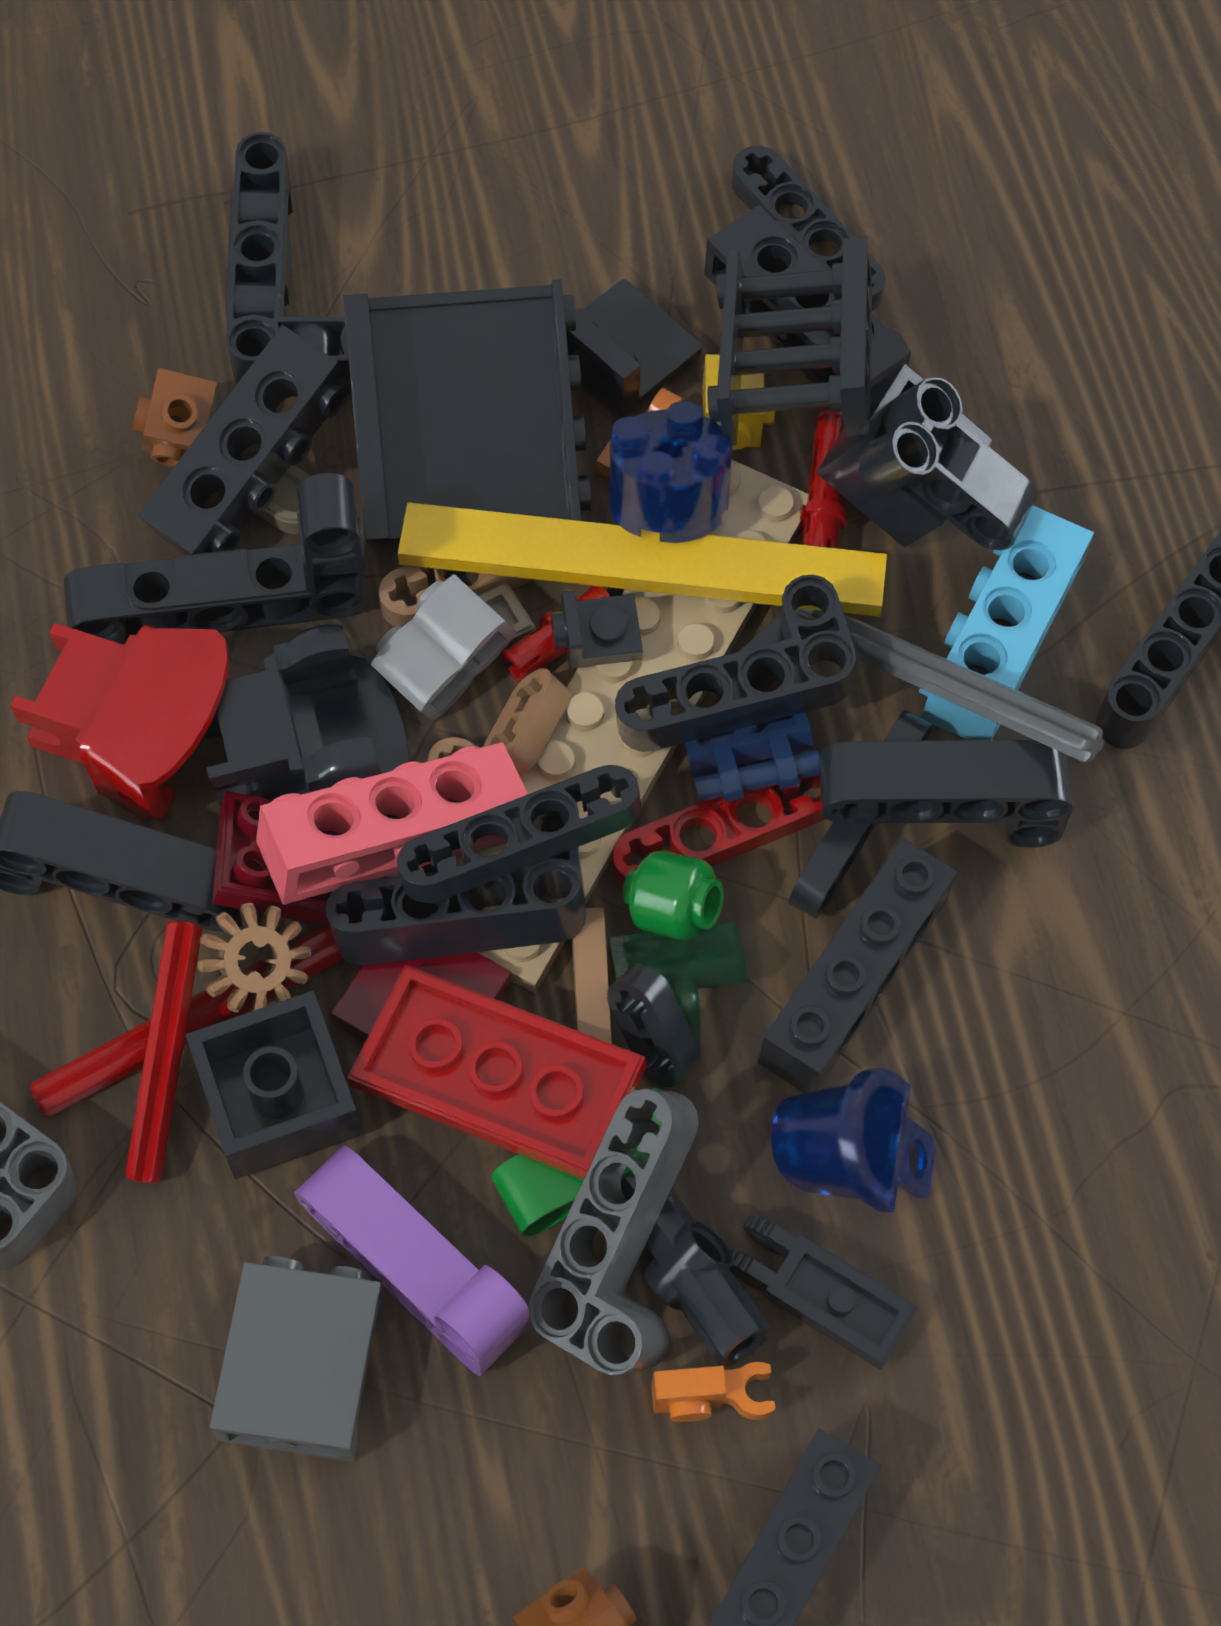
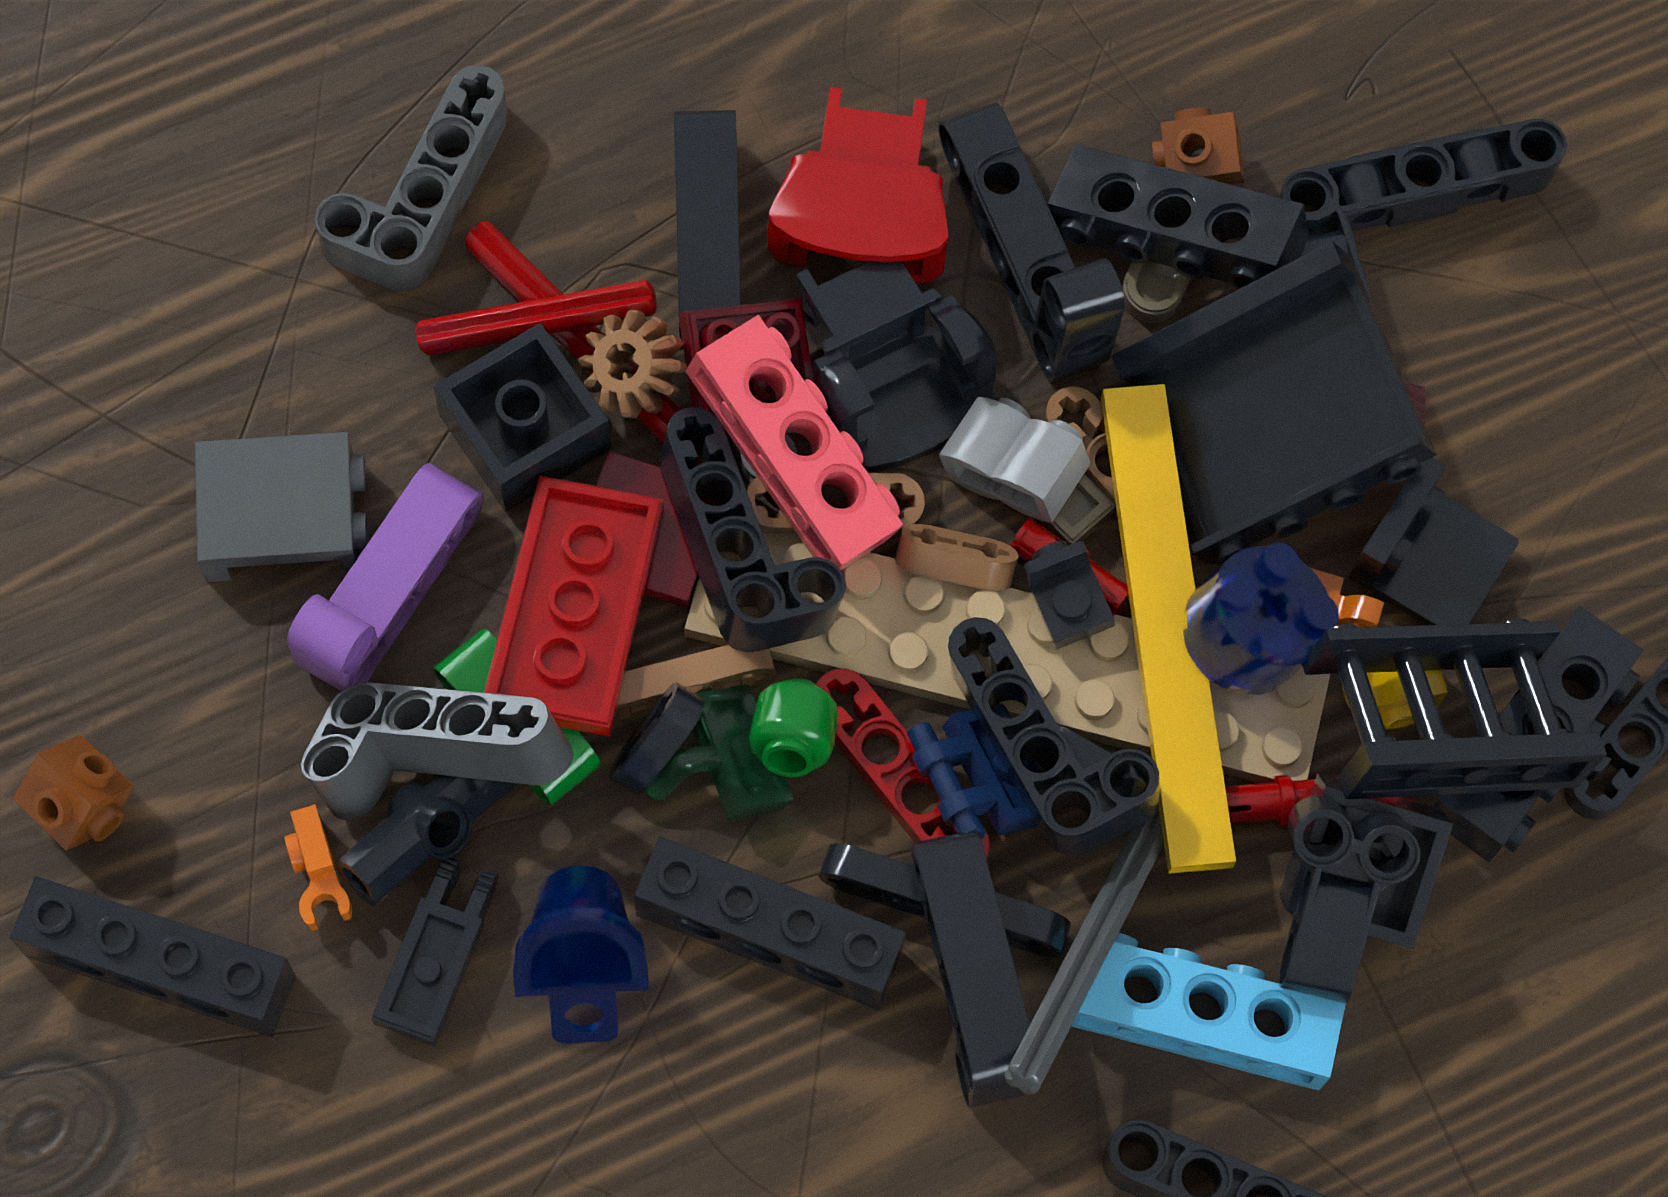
camera: 75 degrees right, 5 degrees up
(515, 824) = (790, 560): black beam -> none

